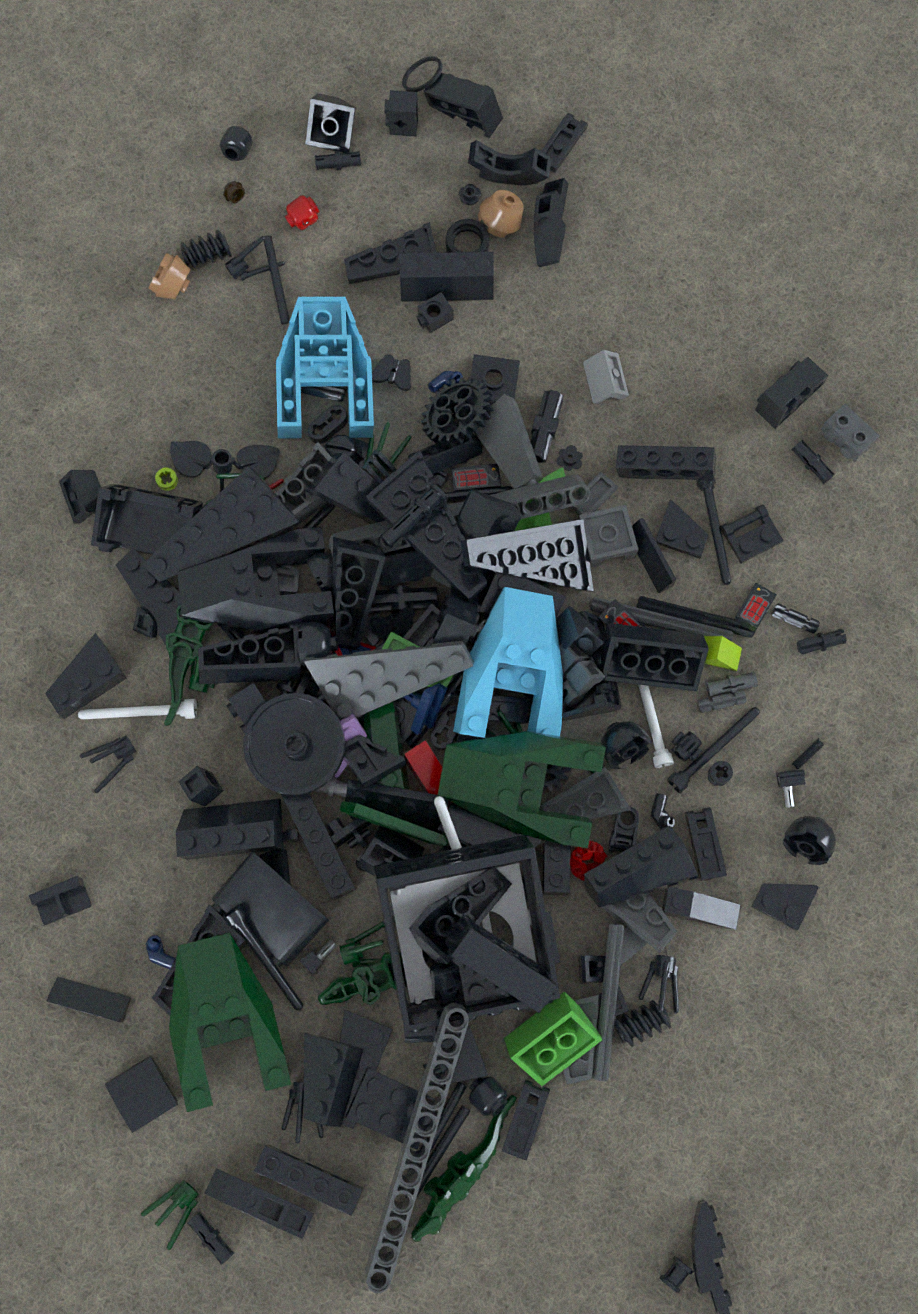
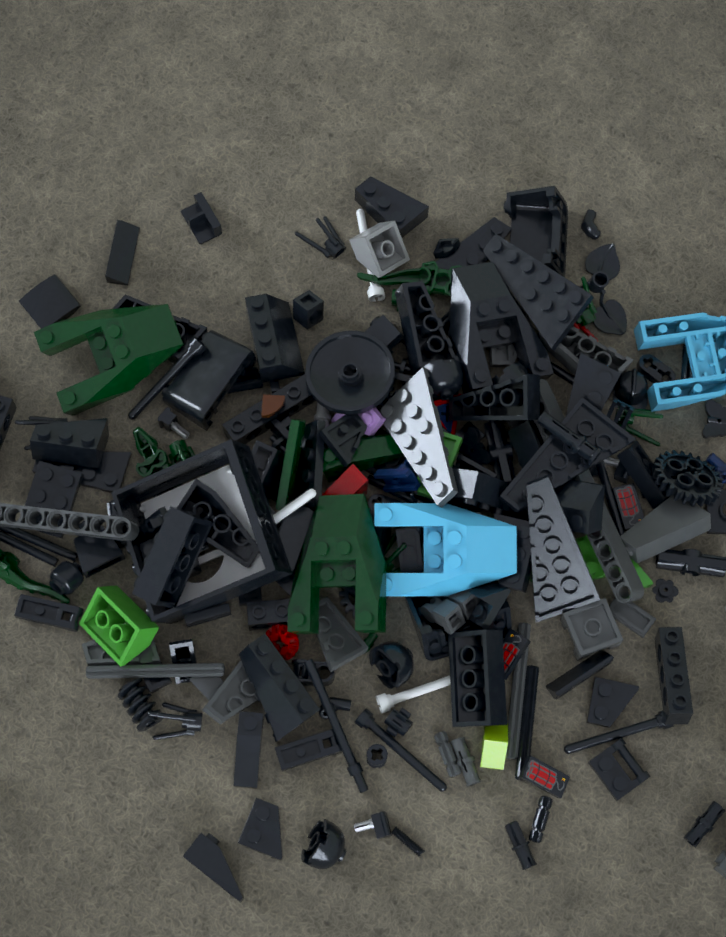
camera: 80 degrees right, 5 degrees down
(81, 493) = (558, 175): black panel -> none
(137, 694) = (380, 248): none -> light grey slope
(143, 465) = (588, 225): none -> black arm
(156, 952) = (167, 297): dark blue arm -> none
(169, 486) = (579, 239): lime bush -> none
(318, 838) = (271, 404): none -> reddish brown tile
(729, 799) = (354, 769): none -> black bar
(816, 961) = (209, 859): none -> black slope

